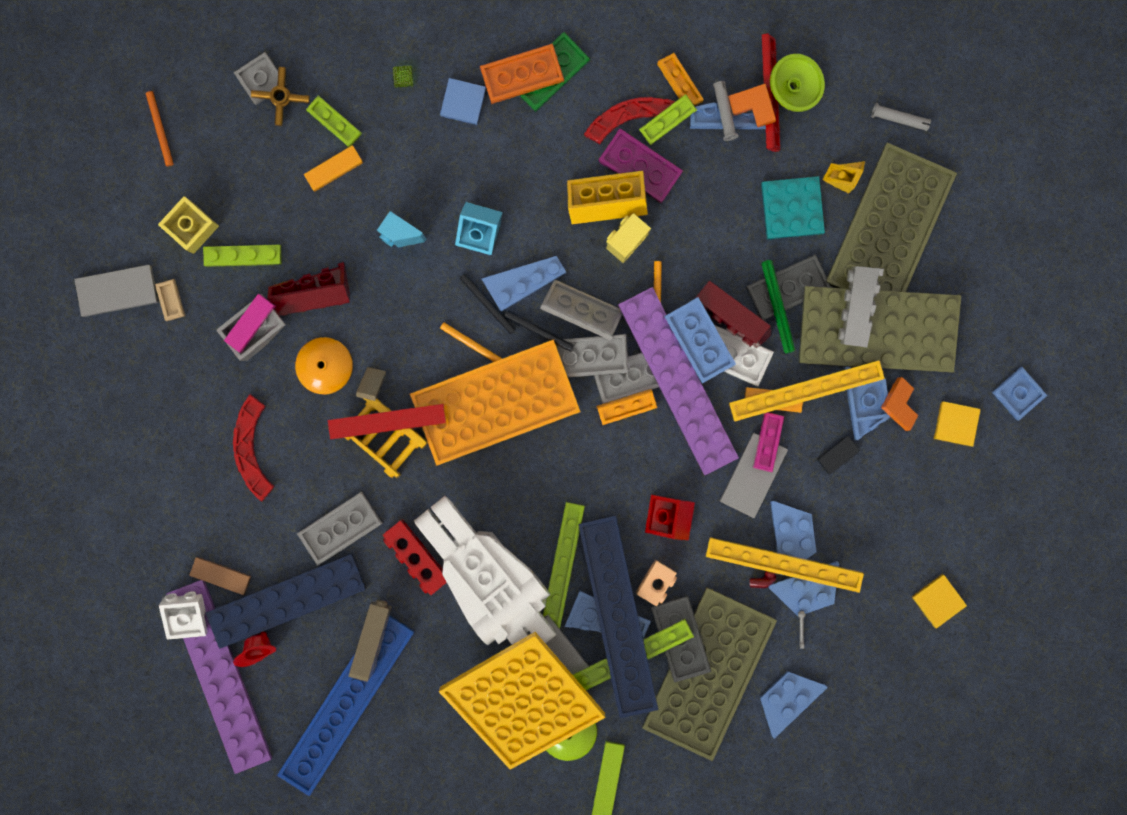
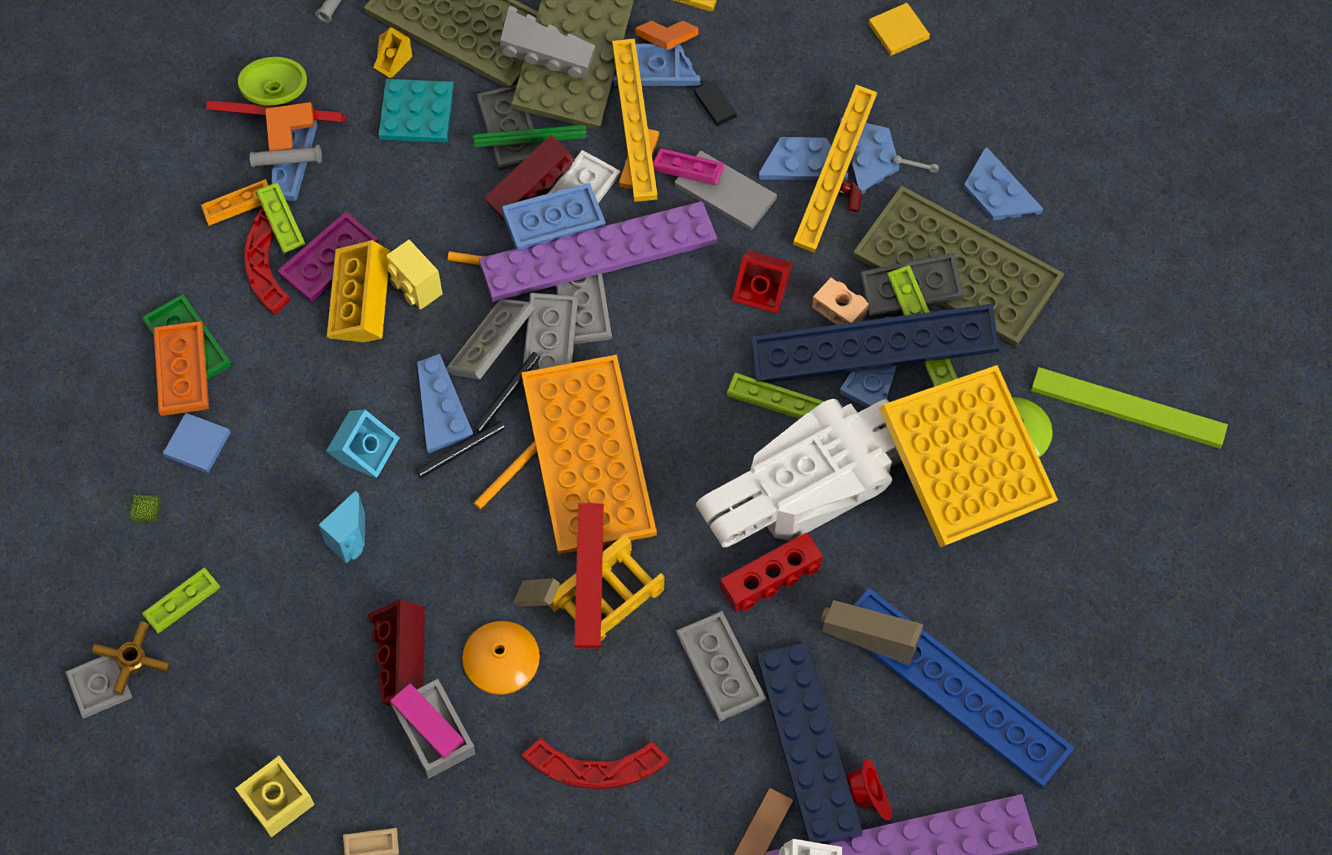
camera: 80 degrees left, 25 degrees down
(159, 128) = (129, 827): orange bar -> none
(242, 255) = (331, 740): lime plate -> none
(333, 168) = (242, 609): light orange tile -> none
(626, 406) = (619, 310): light orange tile -> none

